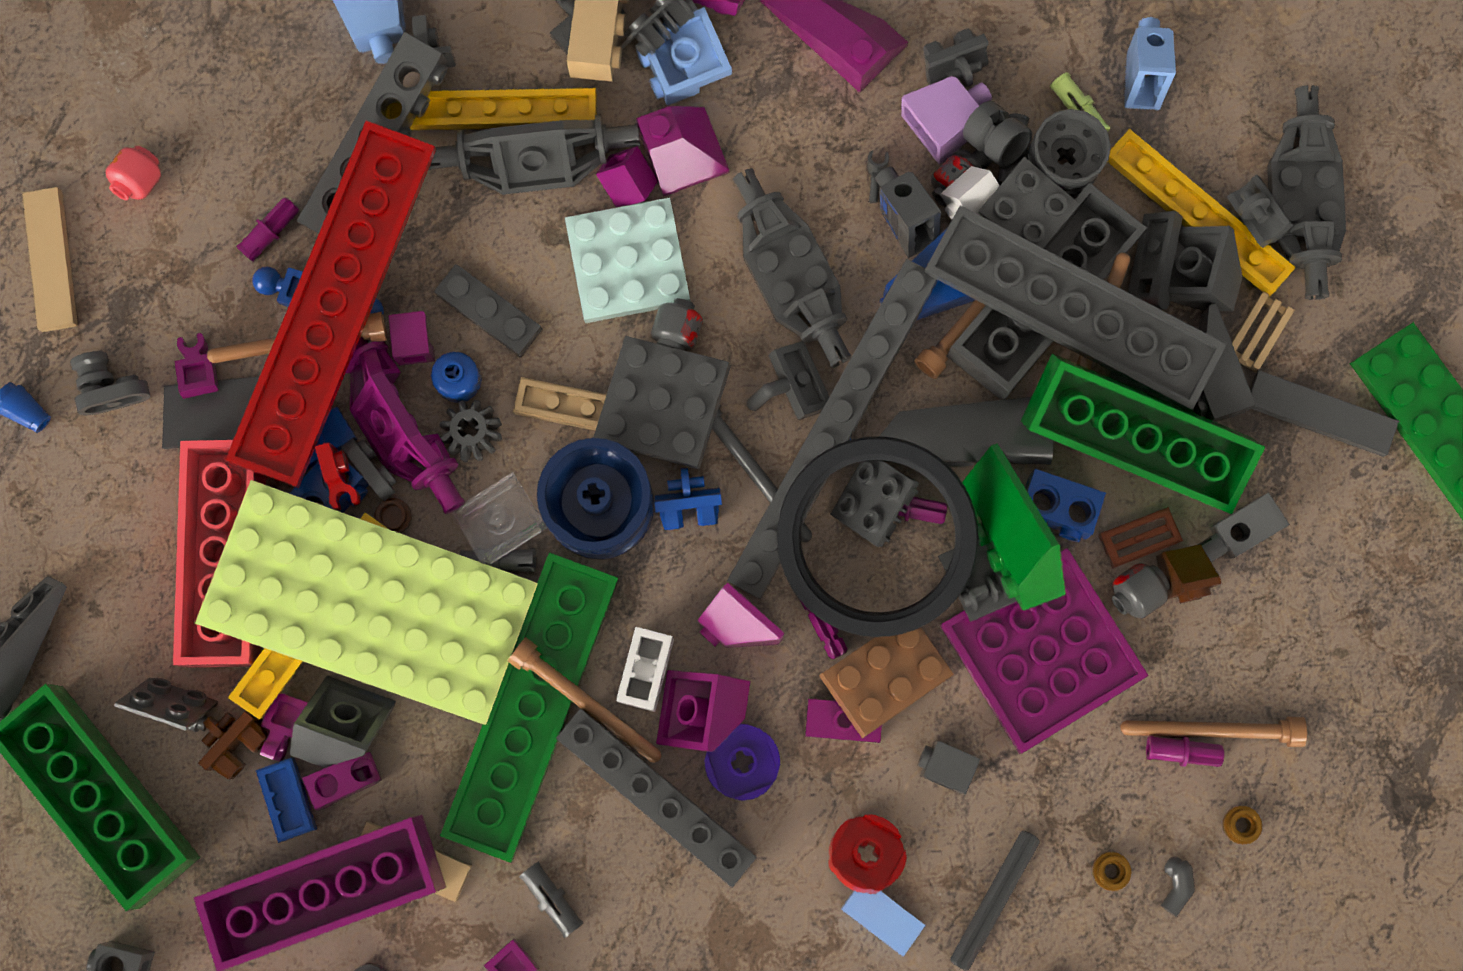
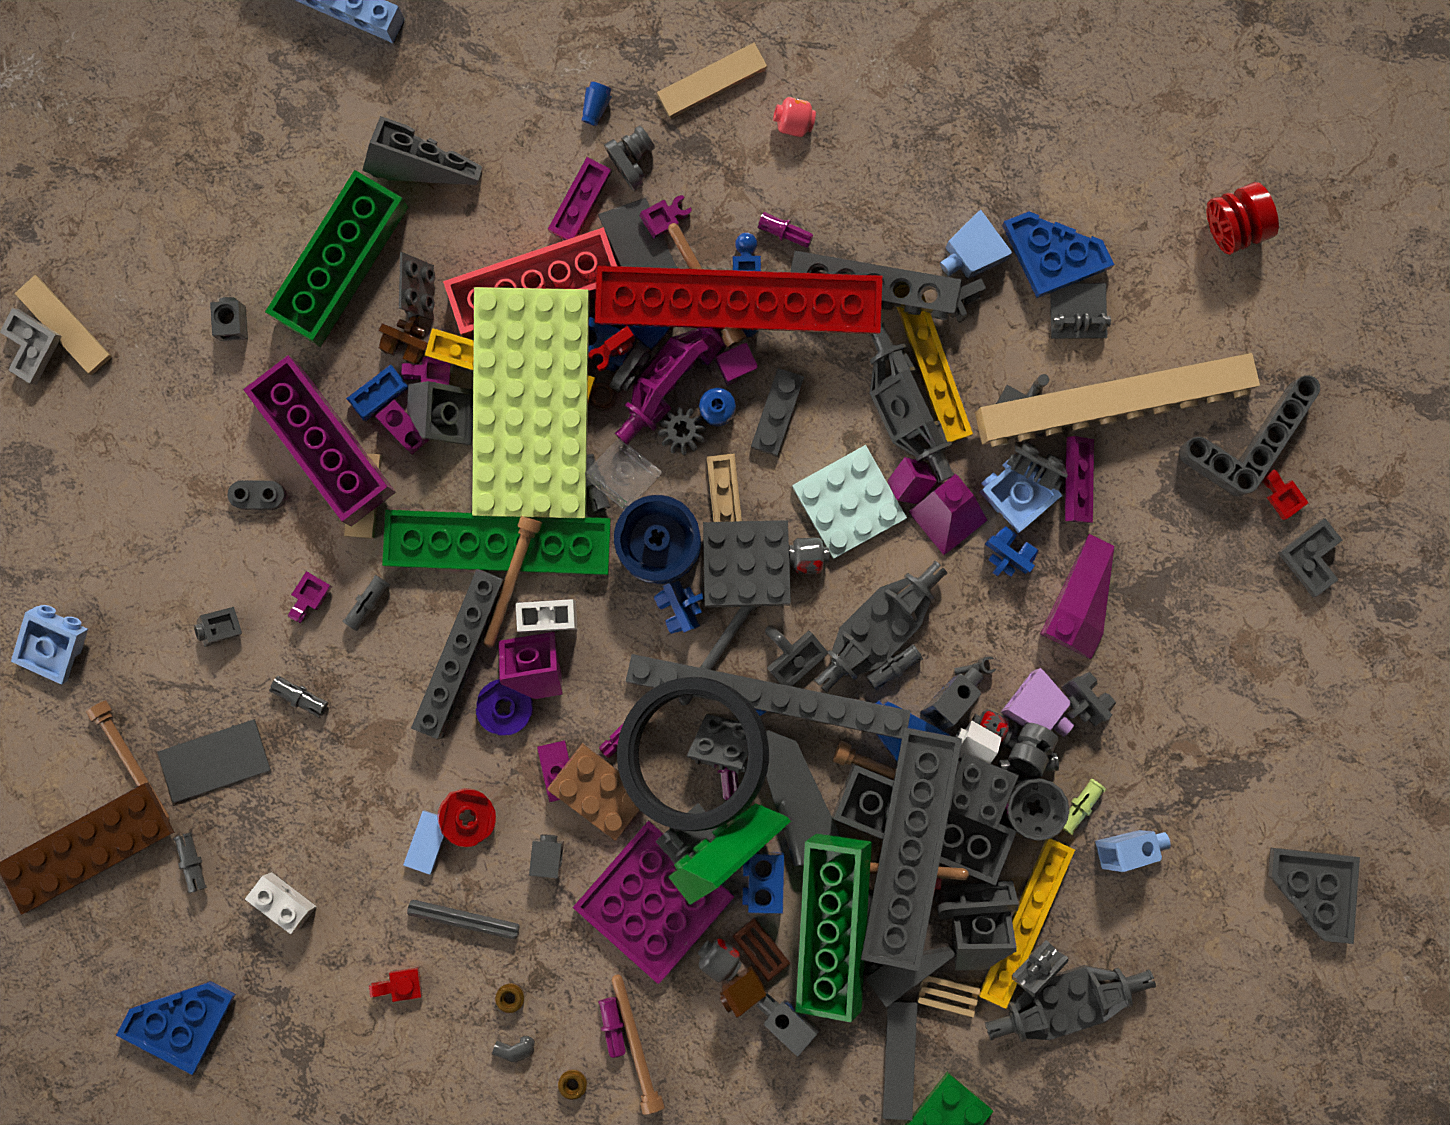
camera: 70 degrees right, 5 degrees up
(135, 465) = (580, 199): none -> magenta plate
(737, 622) = (601, 671): slope -> none
(756, 96) = (1000, 545): none -> blue hips
(846, 269) = (894, 667): none -> dark grey pin

